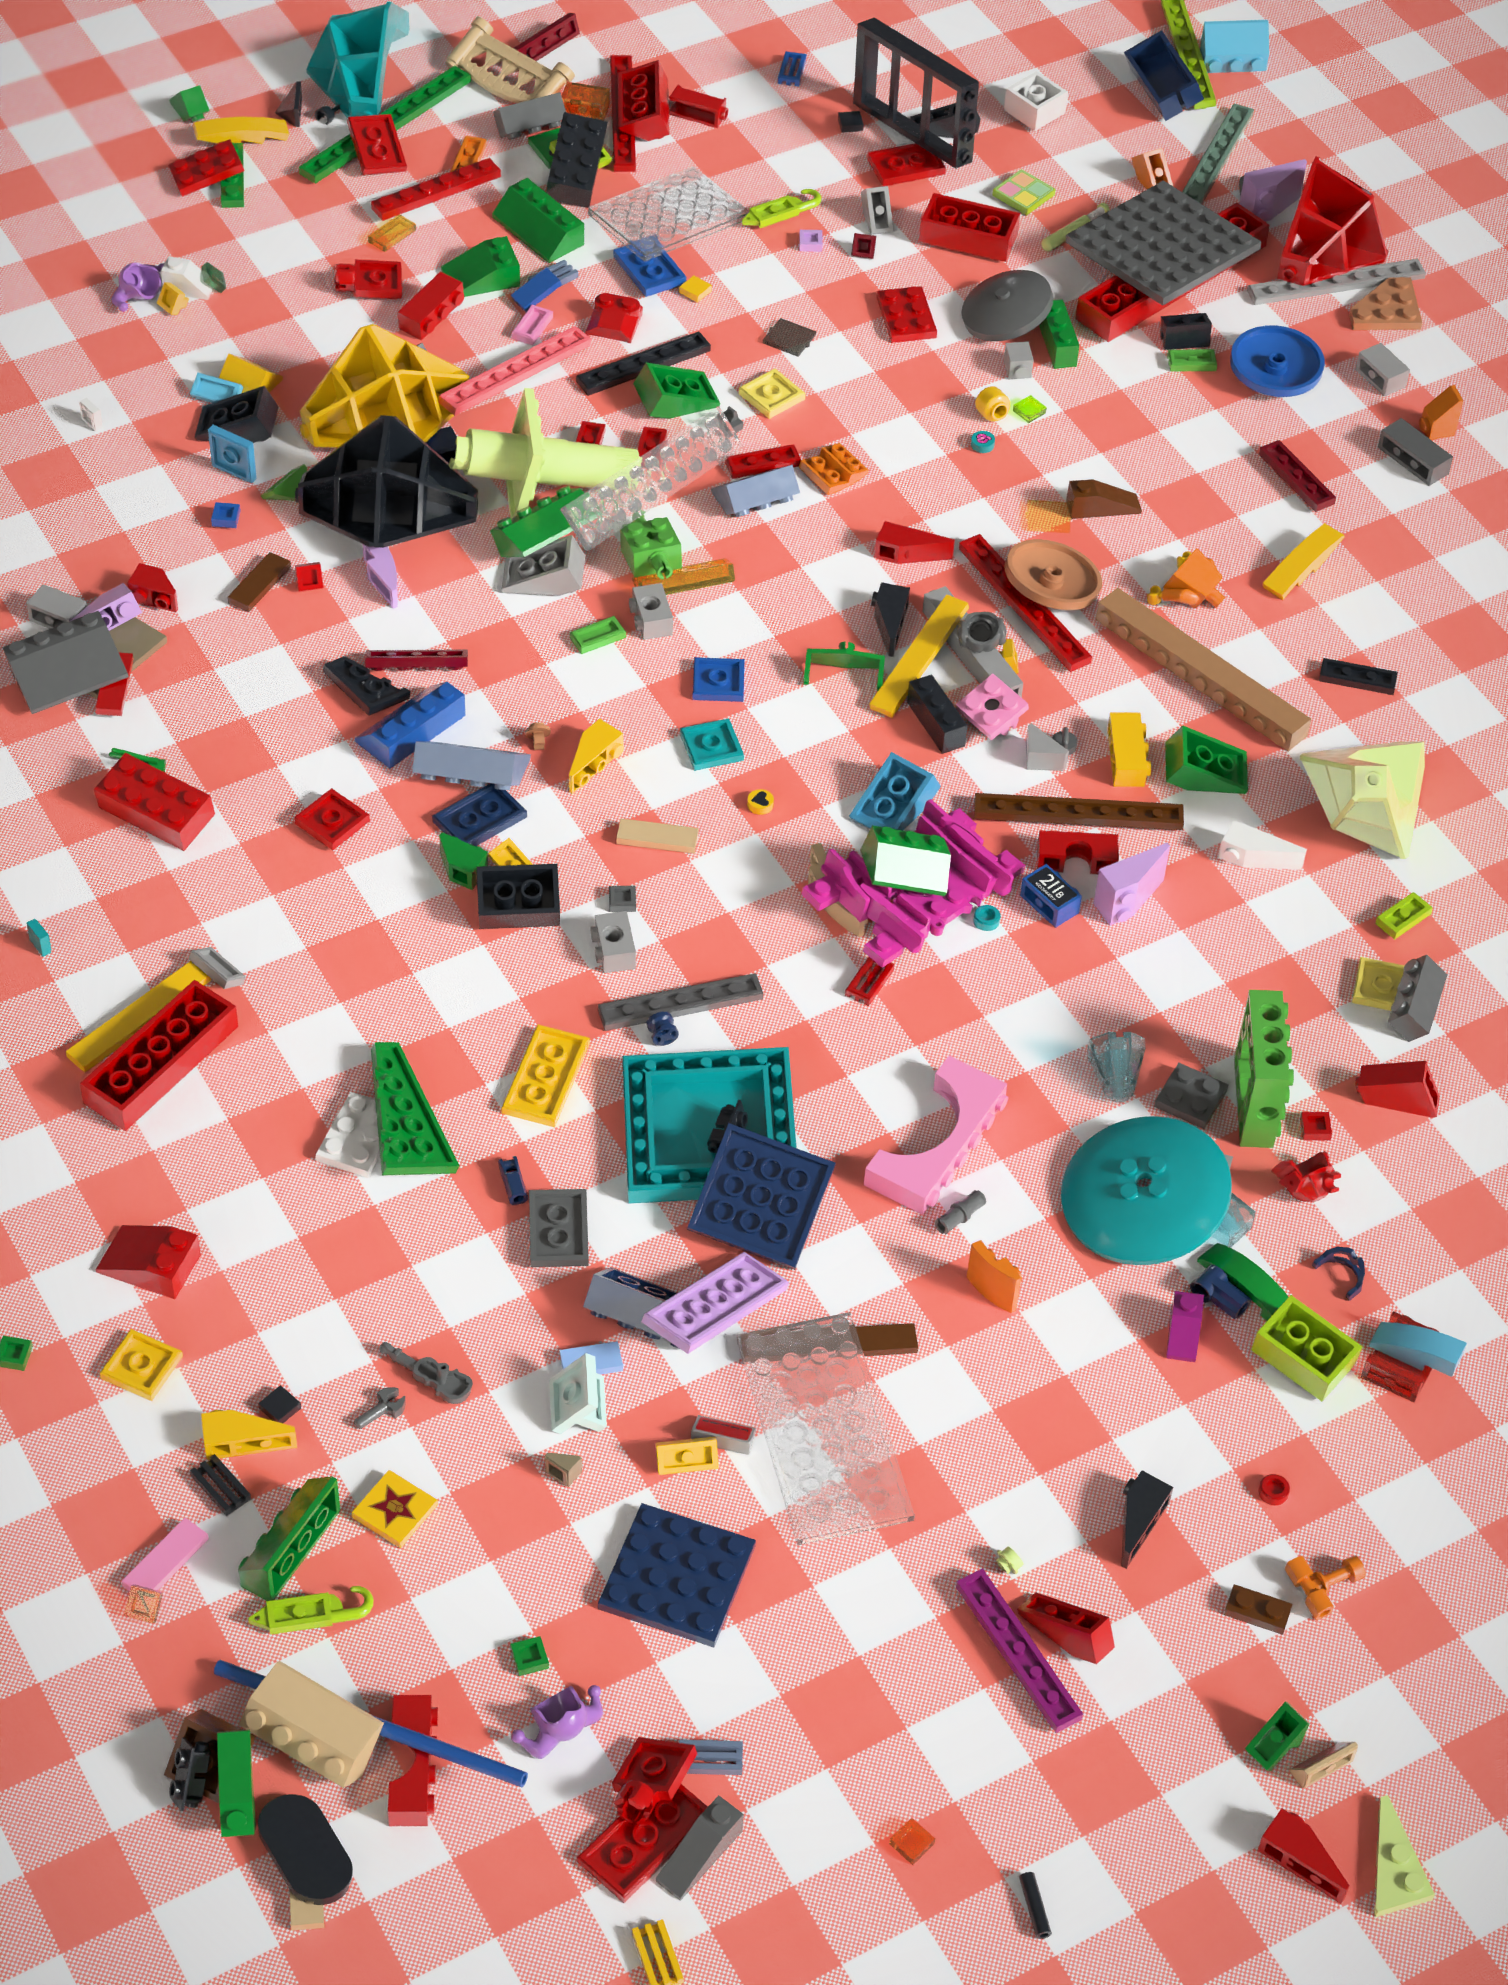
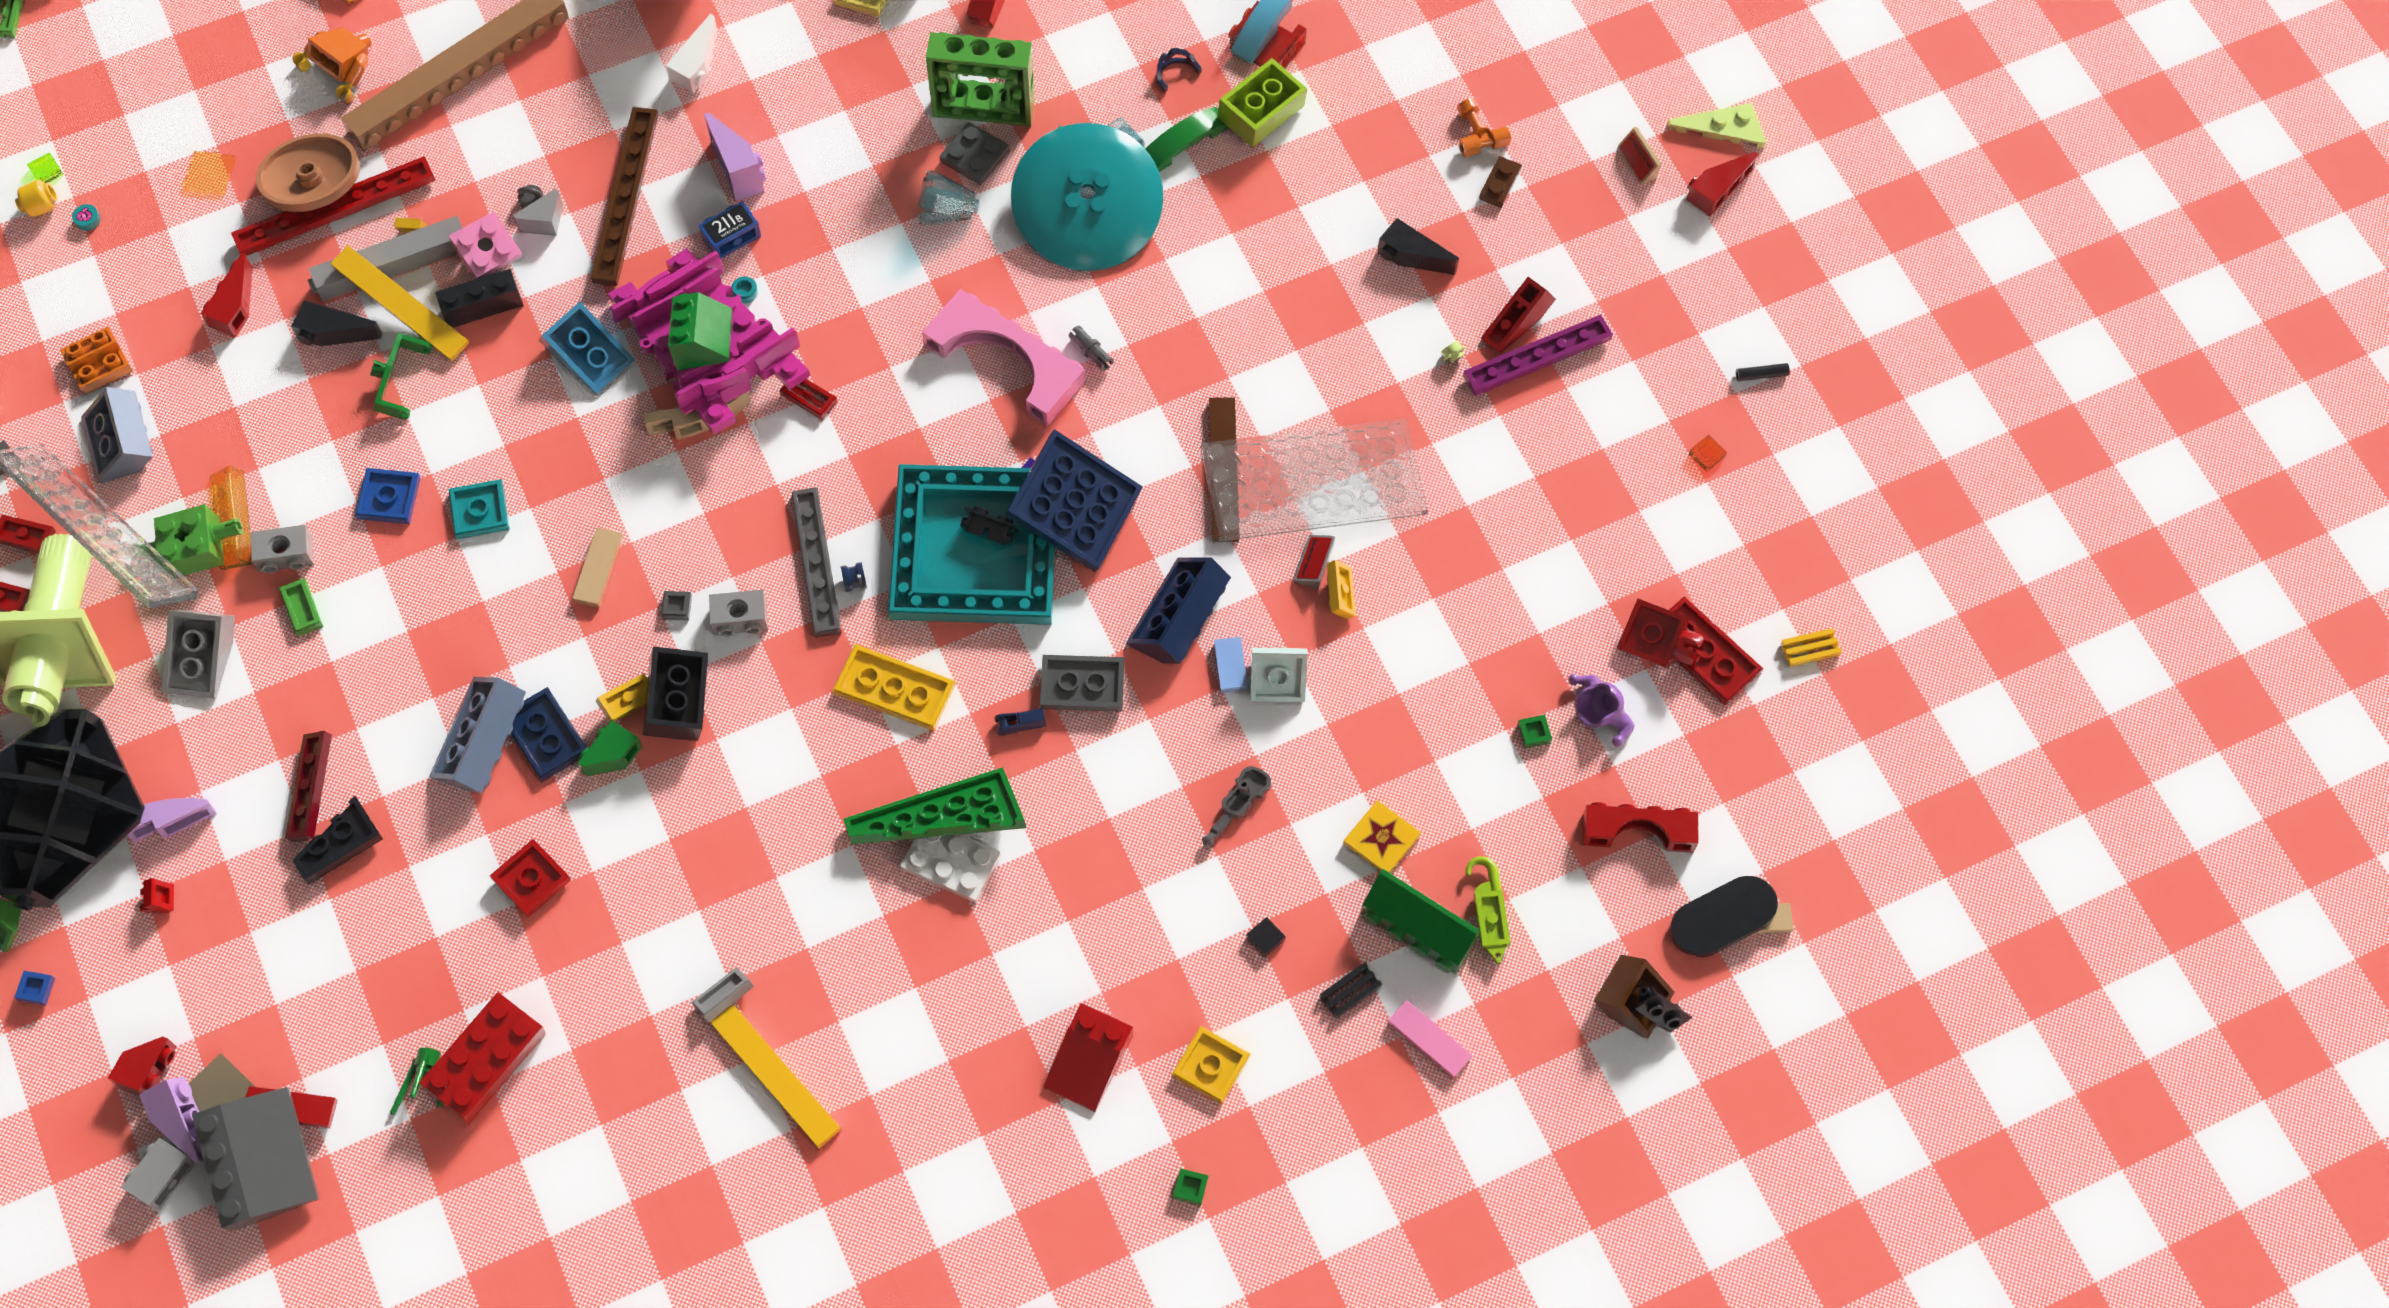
camera: 85 degrees left, 15 degrees up
(39, 937) = (658, 1178): teal tile -> none
(143, 1603) = (1480, 1055): clear orange tile -> none
(159, 1055) = (841, 1046): red brick -> none
(236, 1783) = (1680, 965): green slope -> none
(239, 1434) = (1300, 975): yellow slope -> none
(259, 582) = (150, 953): reddish brown tile -> none
(312, 1724) = (1616, 904): tan slope -> none
(383, 1407) = (1272, 846): dark grey bar -> none
(403, 1735) = (1612, 858): blue piece -> none
(414, 721) = (401, 795): blue slope -> none
(535, 525) = (135, 644): green slope -> none
(538, 732) = (444, 670): nougat plate -> none
(563, 1467) = (1347, 693): dark tan slope -> none
(596, 749) = (474, 617): yellow slope -> none
(677, 1575) = (1456, 609): dark blue plate -> none
(701, 1847) = (1719, 605): dark grey slope -> none
(715, 1302) = (1195, 545): lavender tile -> none
(717, 1751) = (1634, 575): sand blue tile -> none
(760, 801) = (566, 470): yellow tile -> none
(762, 461) = (68, 427): red tile -> none
(981, 631) = (394, 236): dark grey hair -> none
(994, 1278) = (1174, 327): orange slope -> none
(1095, 848) = (680, 183): red arch -> none
(1098, 499) = (203, 122): reddish brown slope -> none
(1128, 749) = (552, 143): yellow brick -> none
(1184, 1326) = (1227, 191): magenta slope -> none
(1205, 763) = (582, 83): green slope -> none
(1216, 1288) = (1189, 163): dark blue piece -> none
(1274, 1489) = (1387, 153): red tile -> none
(1277, 1736) = (1623, 178): green slope -> none
(1310, 1179) = (1080, 73): red helmet -> none

